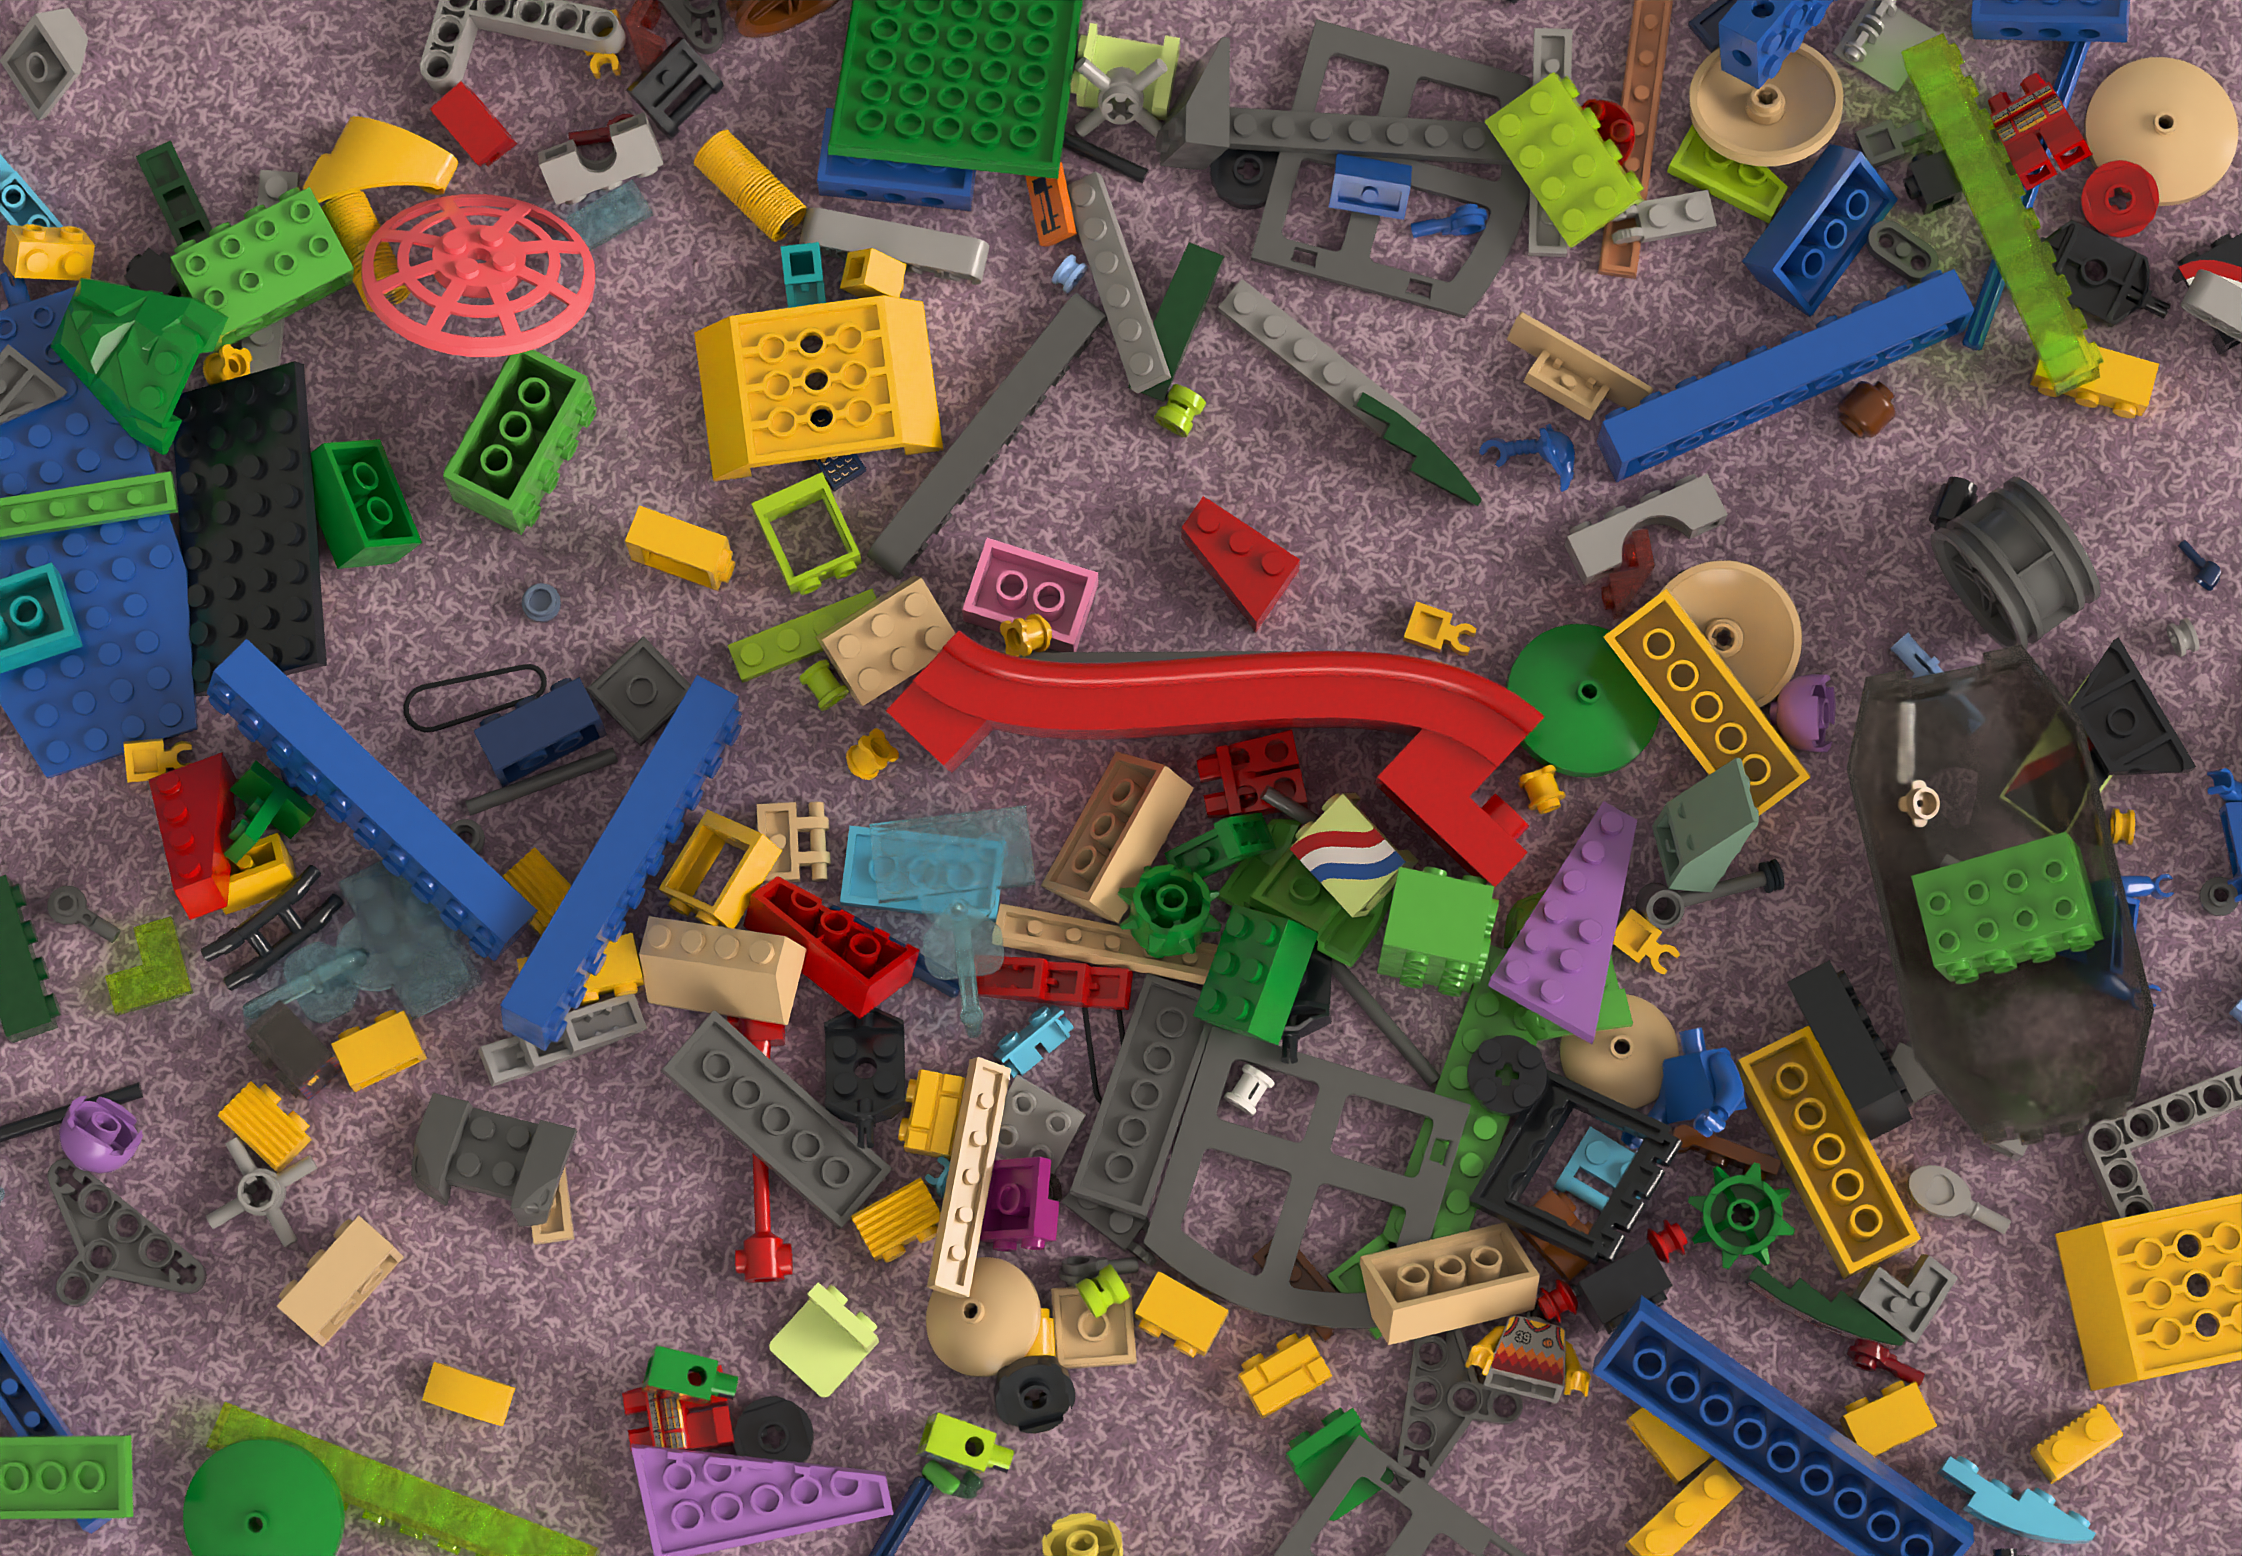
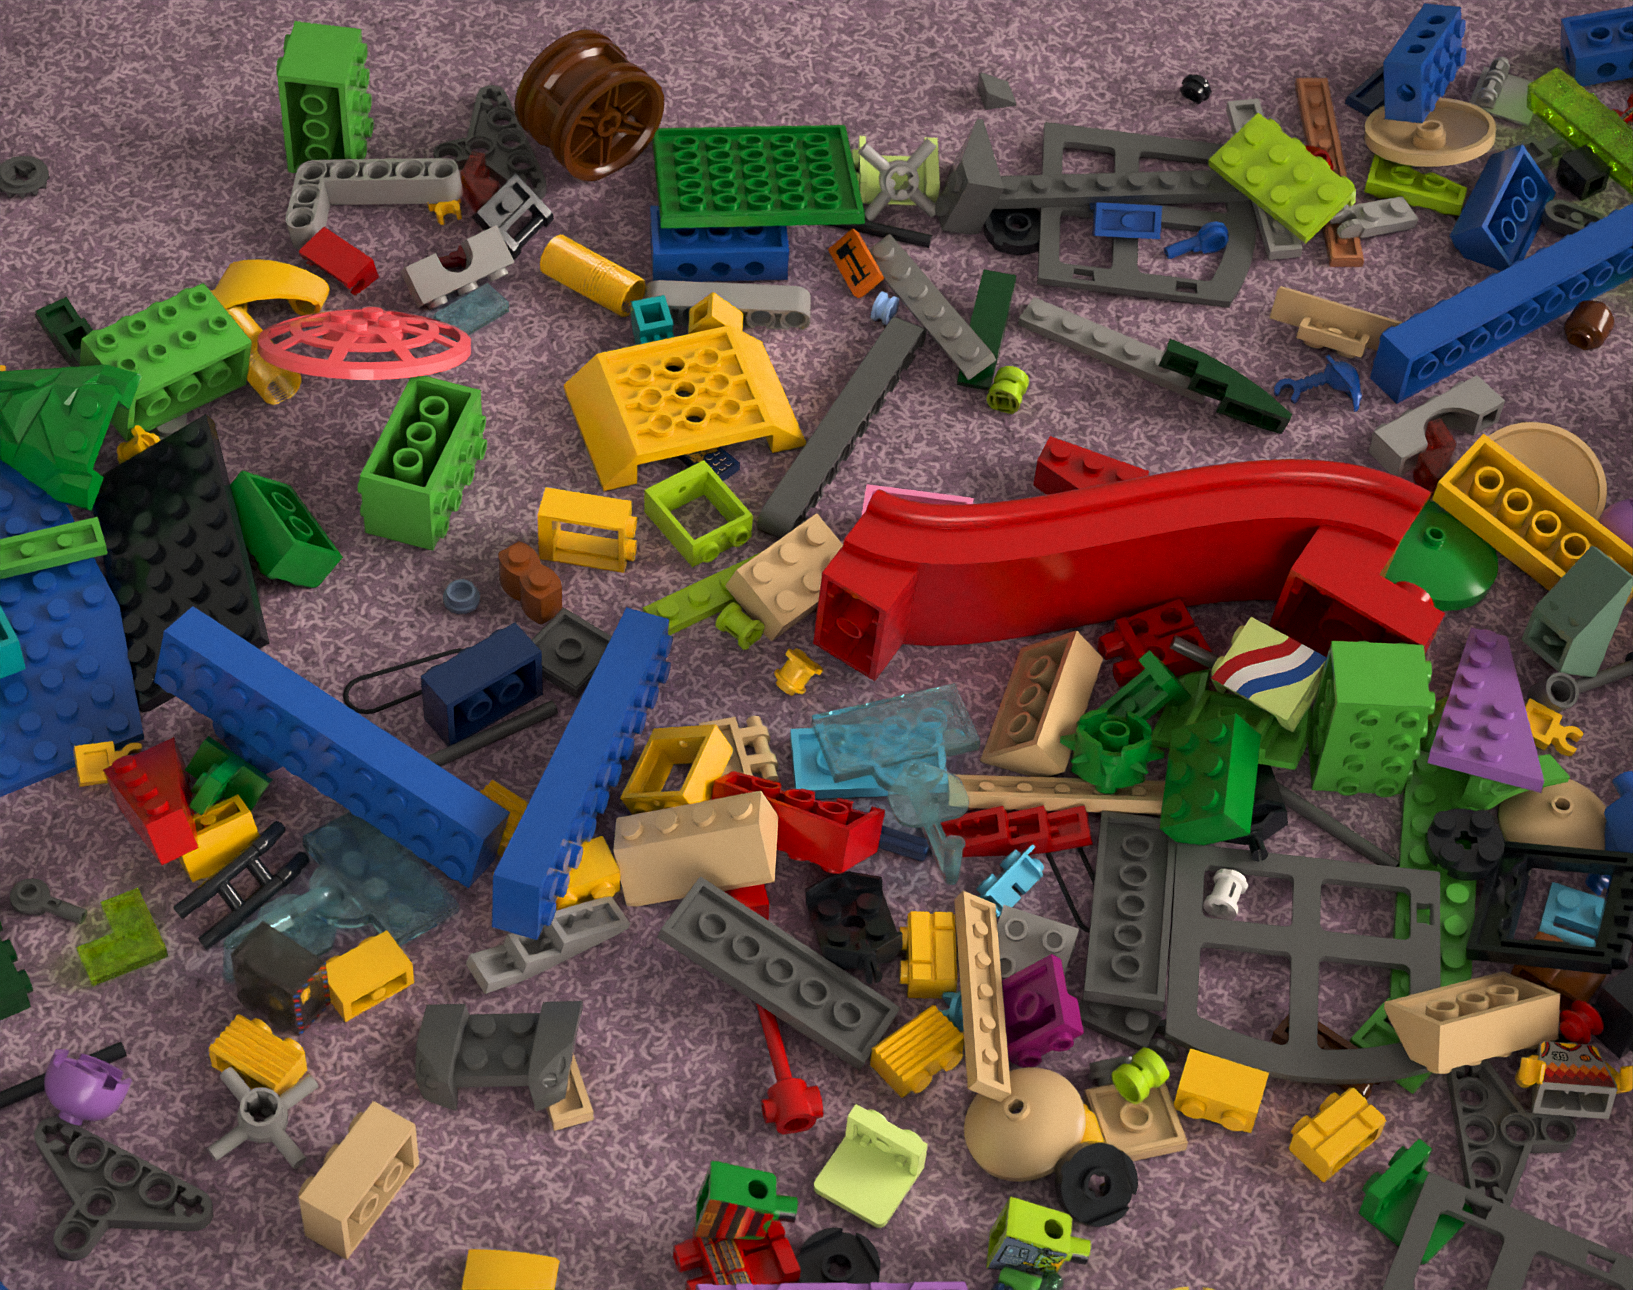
camera: 15 degrees left, 25 degrees down
(610, 596) = (530, 582): none -> dark orange brick

